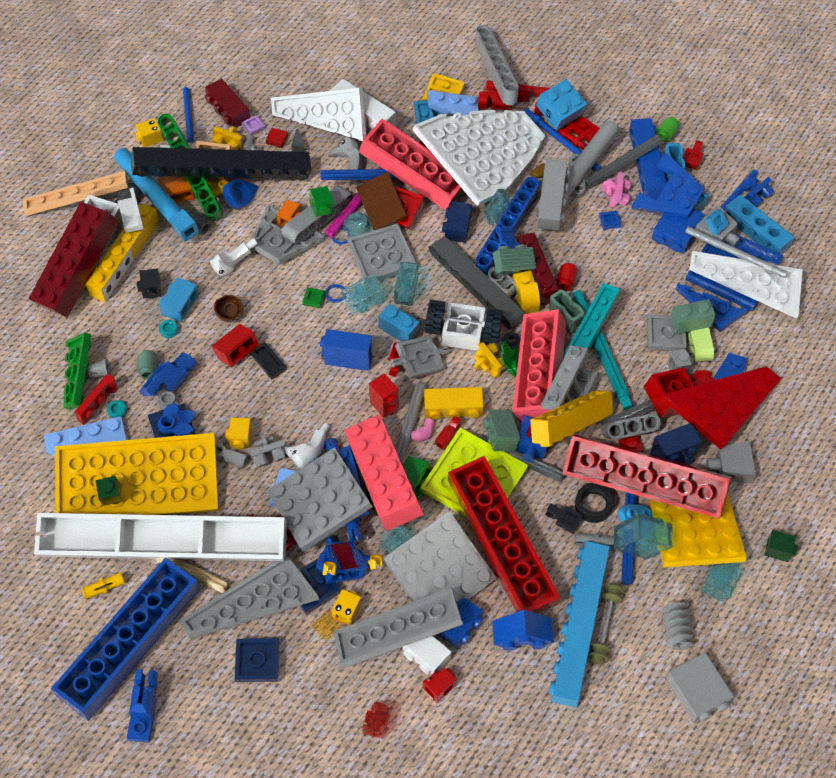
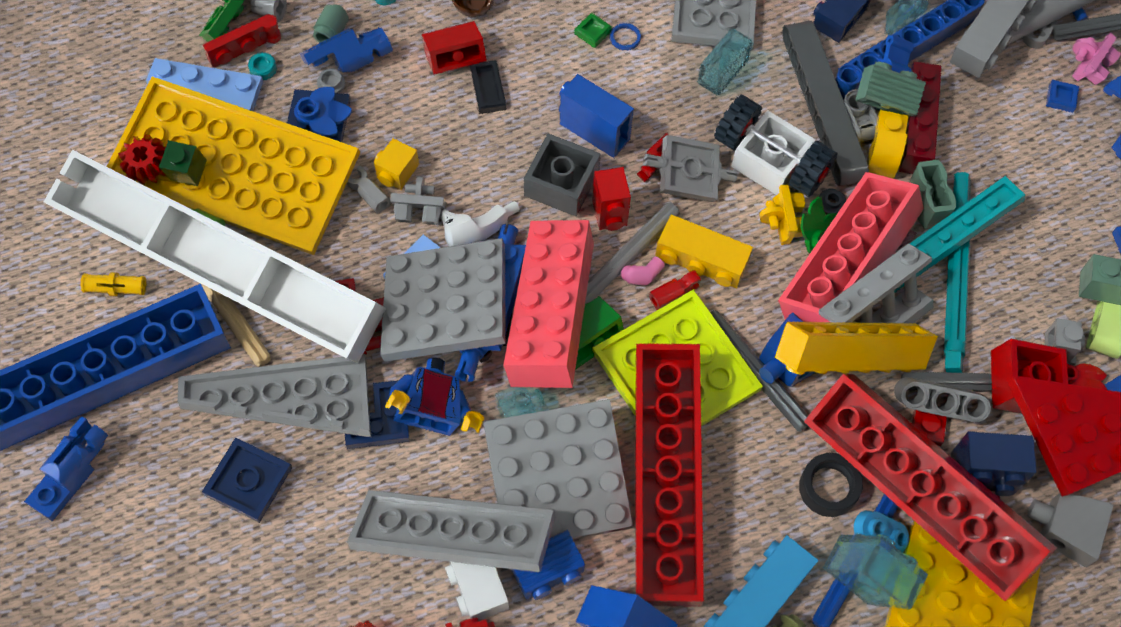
camera: 25 degrees right, 5 degrees up
(84, 491) = (134, 158): none -> red gear
(325, 626) = (364, 477): clear yellow tile -> none
(345, 394) = (561, 174): none -> dark grey brick
(346, 606) = (404, 465): yellow brick -> none
(363, 294) = (660, 53): clear light blue brick -> none
(398, 324) = (685, 111): dark azure brick -> none
(501, 430) = (749, 320): sand green brick -> none
(566, 276) = (958, 147): red brick -> none
(566, 518) = (779, 489): black plate -> none
(596, 538) = (804, 538): light grey pin -> none
(662, 335) = (1058, 289): light grey plate -> none

